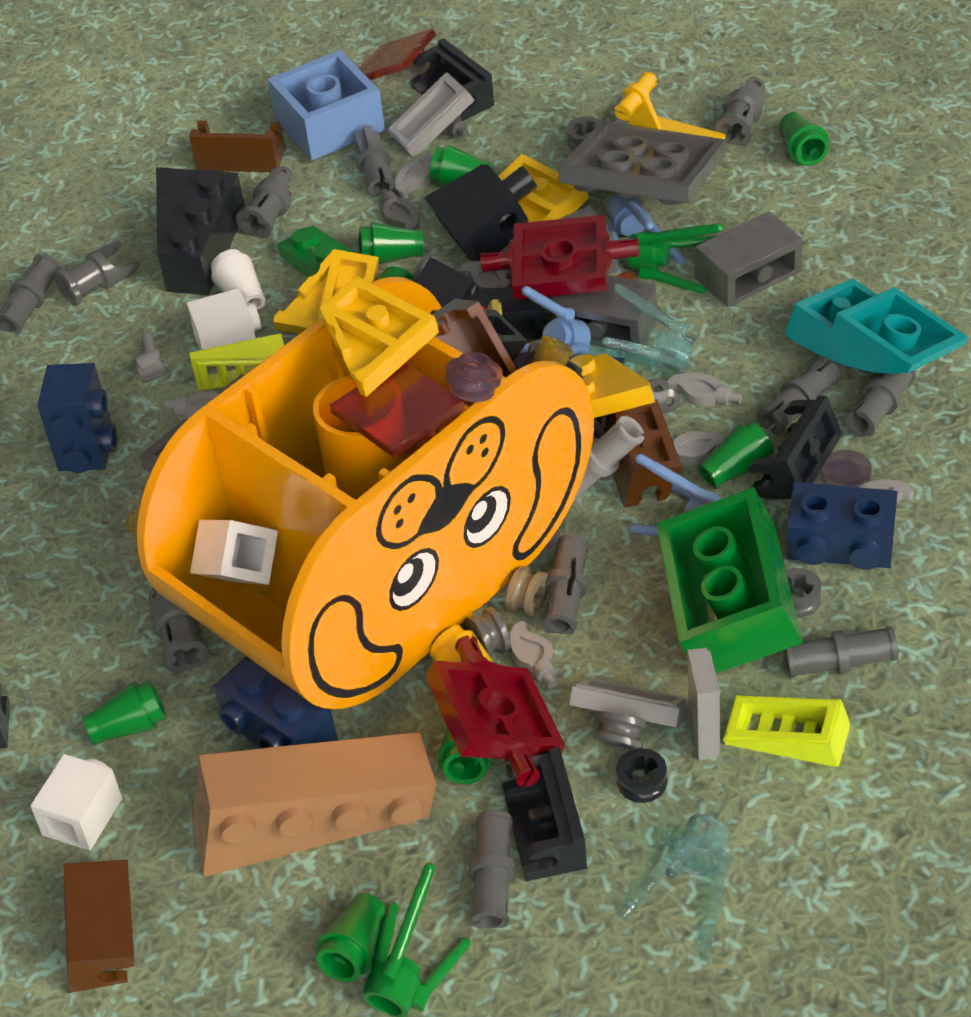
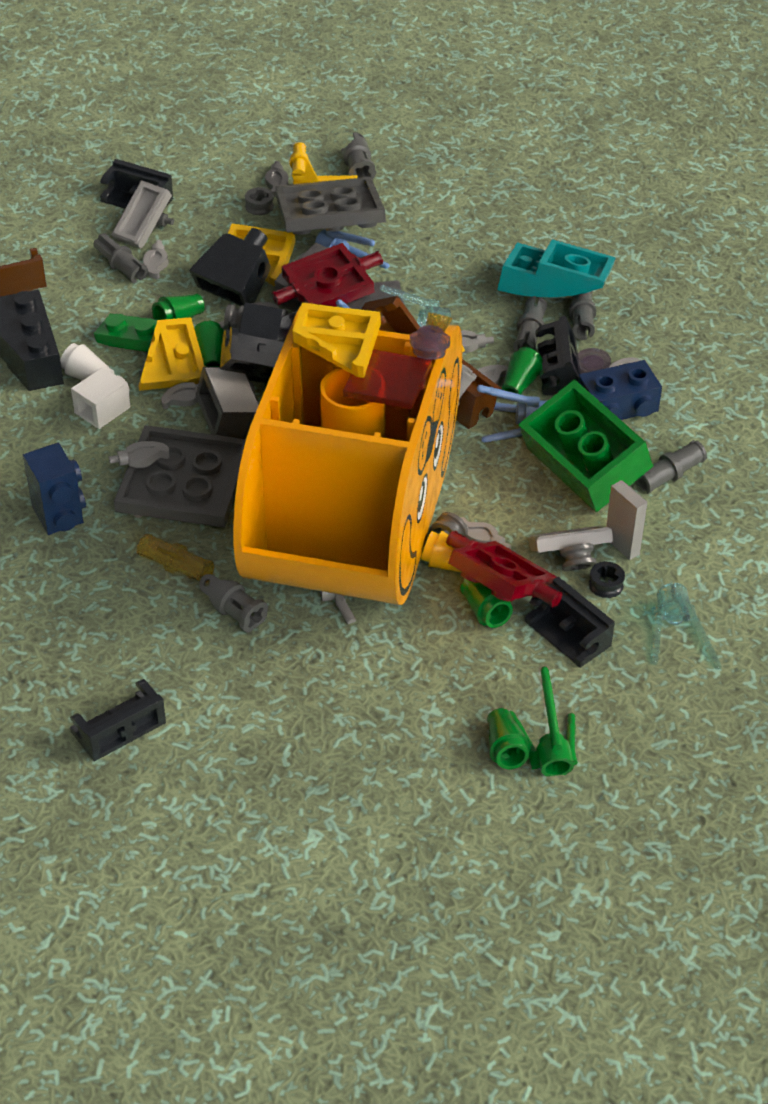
camera: 35 degrees left, 0 degrees up
(77, 801) = (257, 731): white brick -> none
(97, 923) = (332, 798): reddish brown hinge -> none
(126, 713) = (244, 664): green cone -> none
(149, 364) = (62, 437): light grey hand -> none
(234, 551) = (293, 520): white brick -> none
(236, 354) = (154, 409): neon yellow slope -> none
(269, 201) = (66, 310): dark grey piece -> none
(269, 710) = (350, 626): dark blue brick -> none
(305, 796) = (413, 669): medium nougat wedge -> none
(325, 104) = (59, 226): medium blue brick -> none
(396, 54) = (78, 182): clear red piece -> none
(399, 211) = (162, 286): flat silver piece -> none
(452, 163) = (187, 246): green cone -> none
(492, 869) = (561, 666): dark grey pin -> none
(526, 591) = (453, 497): dark tan bush -> none
(566, 584) = (473, 485): dark grey pin -> none
(656, 252) = (388, 248): green plant -> none
(748, 258) = (436, 250): flat silver brick -> none
(804, 140) = (413, 165): green cone -> none
(807, 745) = (679, 507): neon yellow slope -> none

